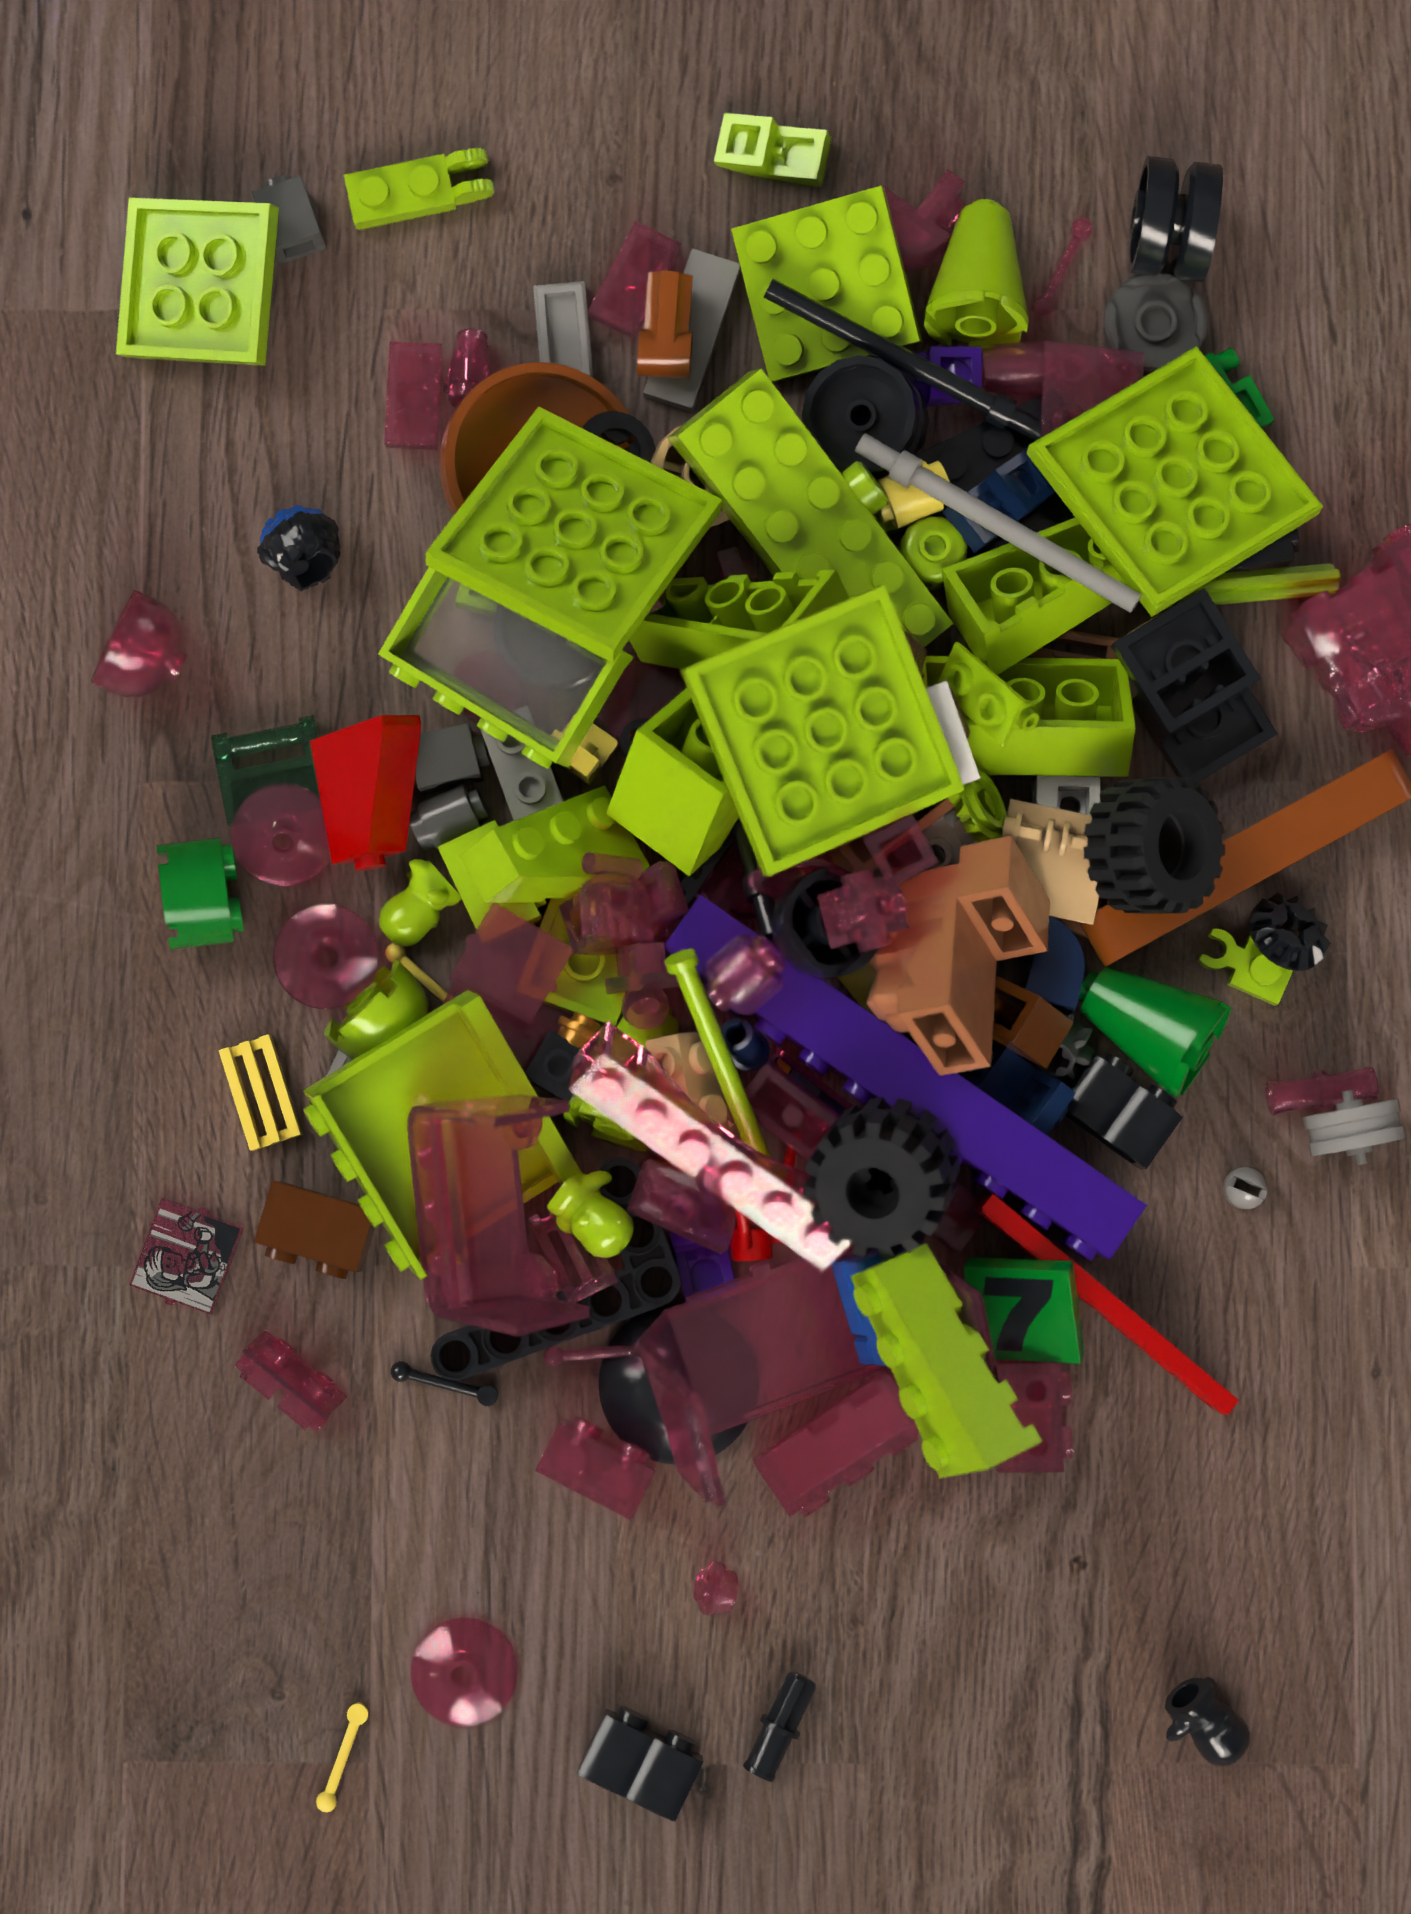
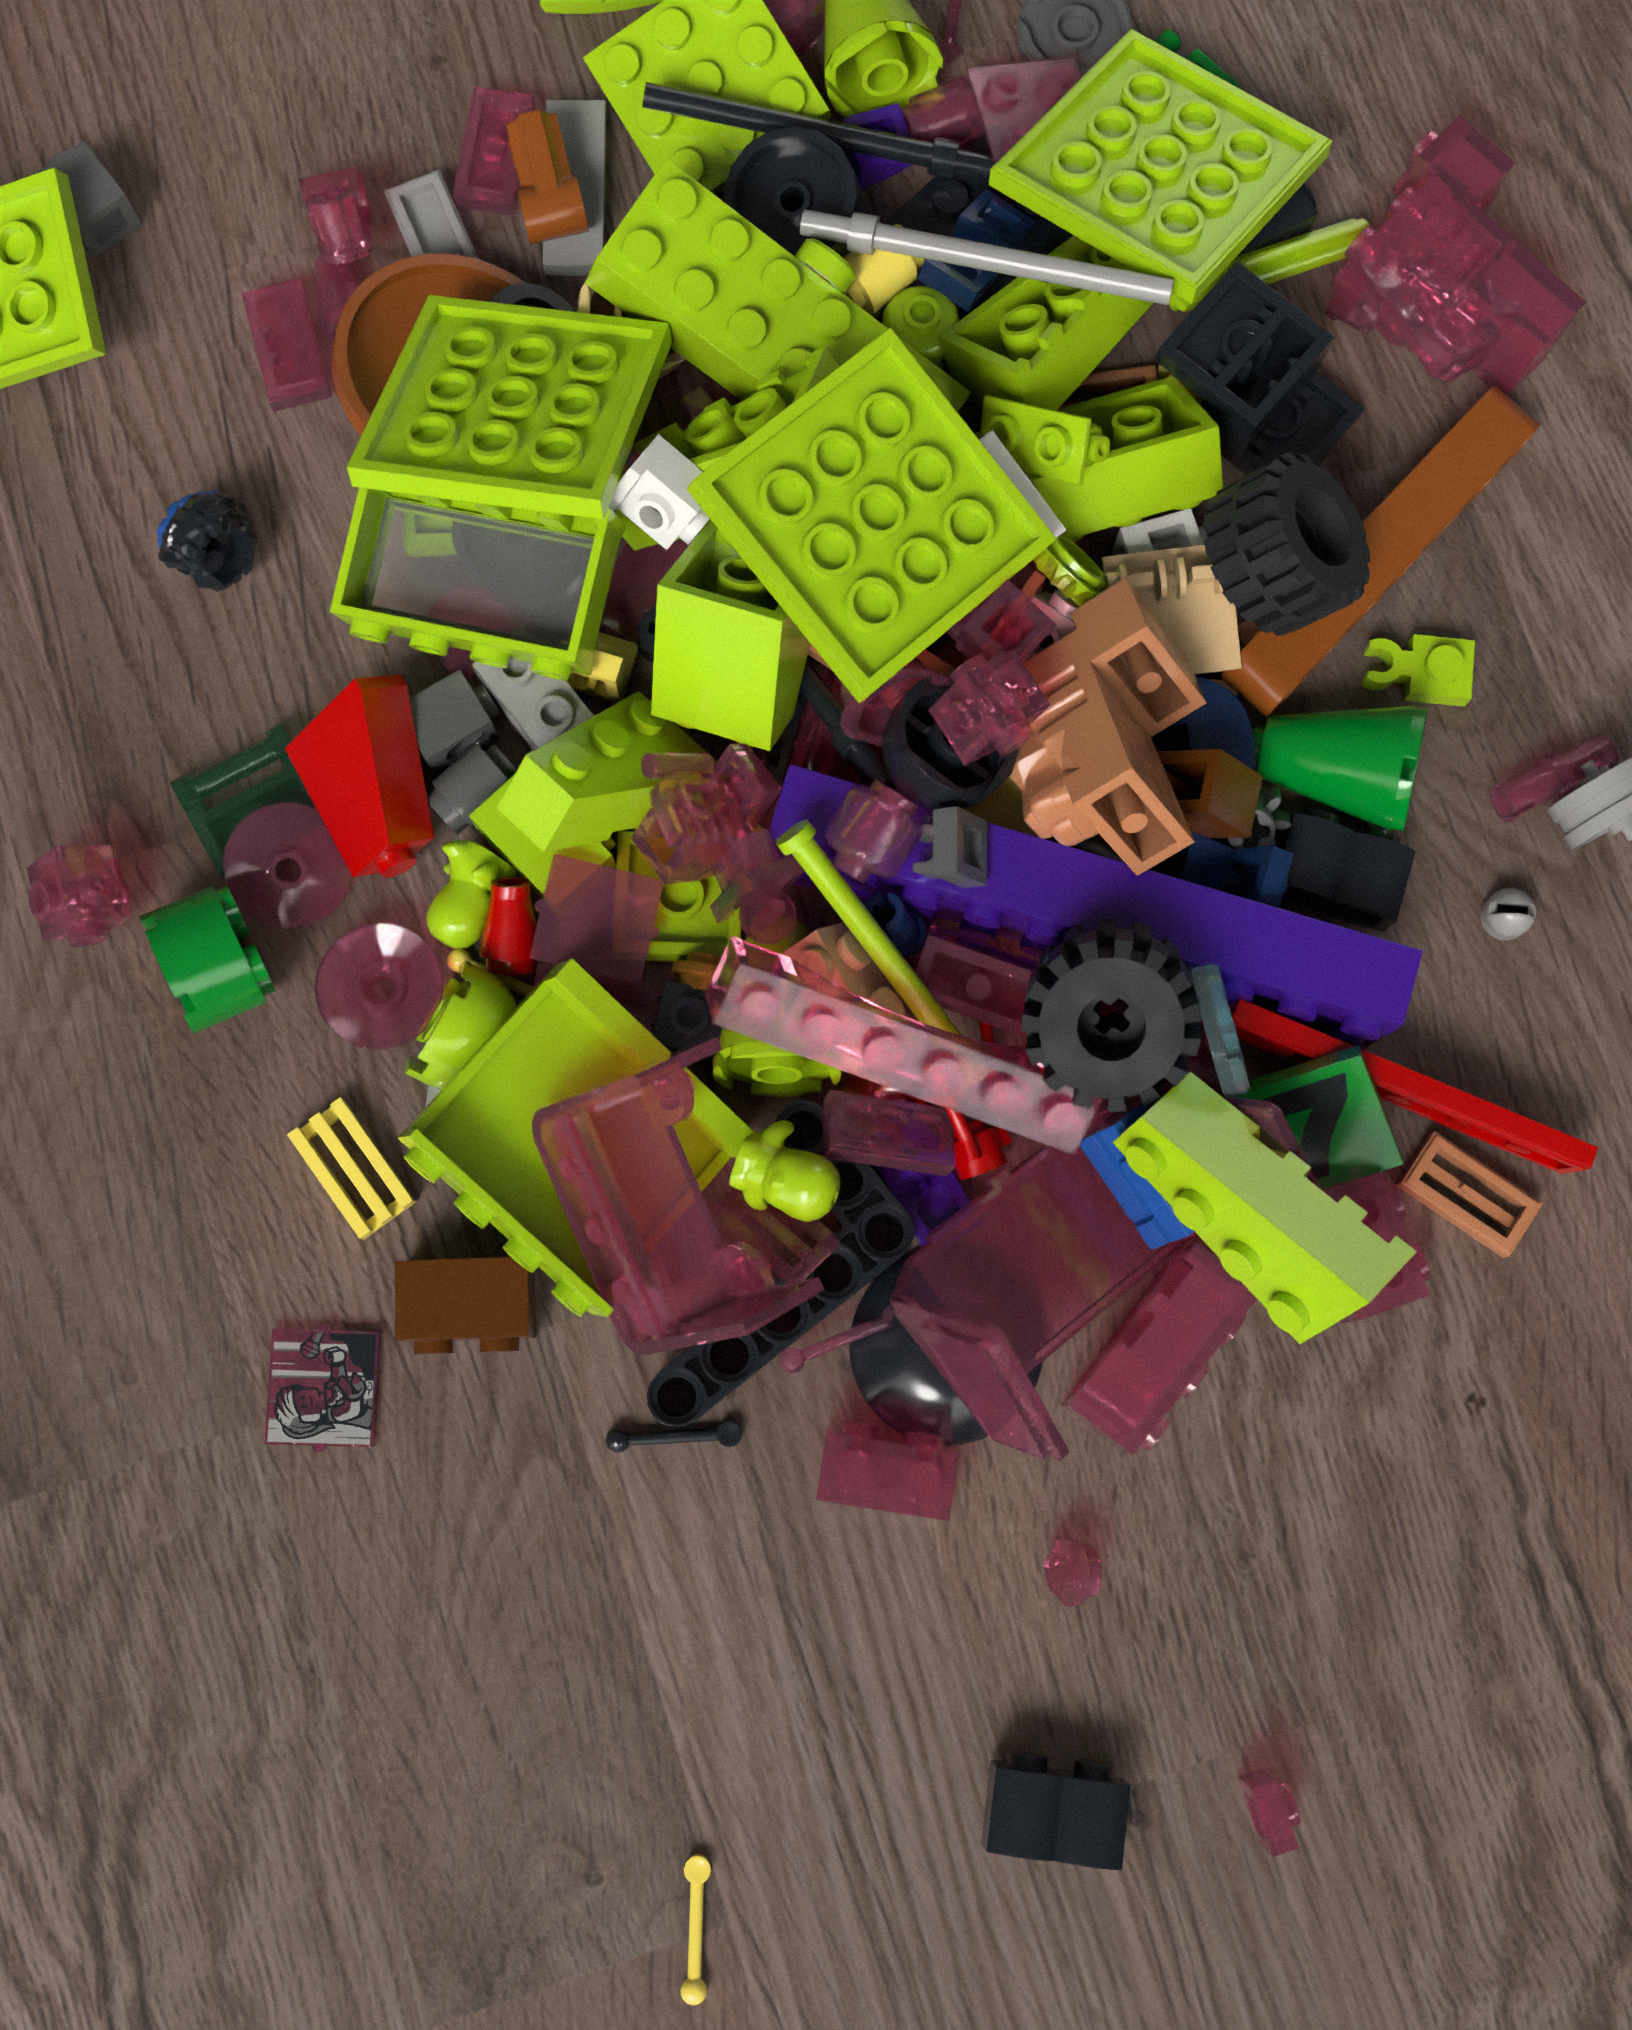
camera: 25 degrees left, 5 degrees down
(113, 807) = (78, 894): none -> clear pink brick
(140, 649) = (56, 707): clear pink cylinder -> none
(273, 1364) = (464, 1480): clear pink hinge -> none
(415, 188) = (223, 129): lime hinge -> none
(441, 944) = (509, 928): none -> red cone
(468, 1644) = (817, 1739): clear pink dish -> none
(490, 298) = (339, 214): none -> clear pink piece
(670, 642) = (656, 494): none -> white brick
(780, 1726) = (1203, 1710): black axle -> none
(805, 1009) = (958, 848): none -> dark grey tile
(806, 1817) = (1271, 1811): none -> clear pink plate
(961, 1218) = (1220, 1030): none -> clear light blue tile
(1103, 1365) = (1422, 1164): none -> nougat tile
(1281, 945) = (1455, 616): black gear -> none

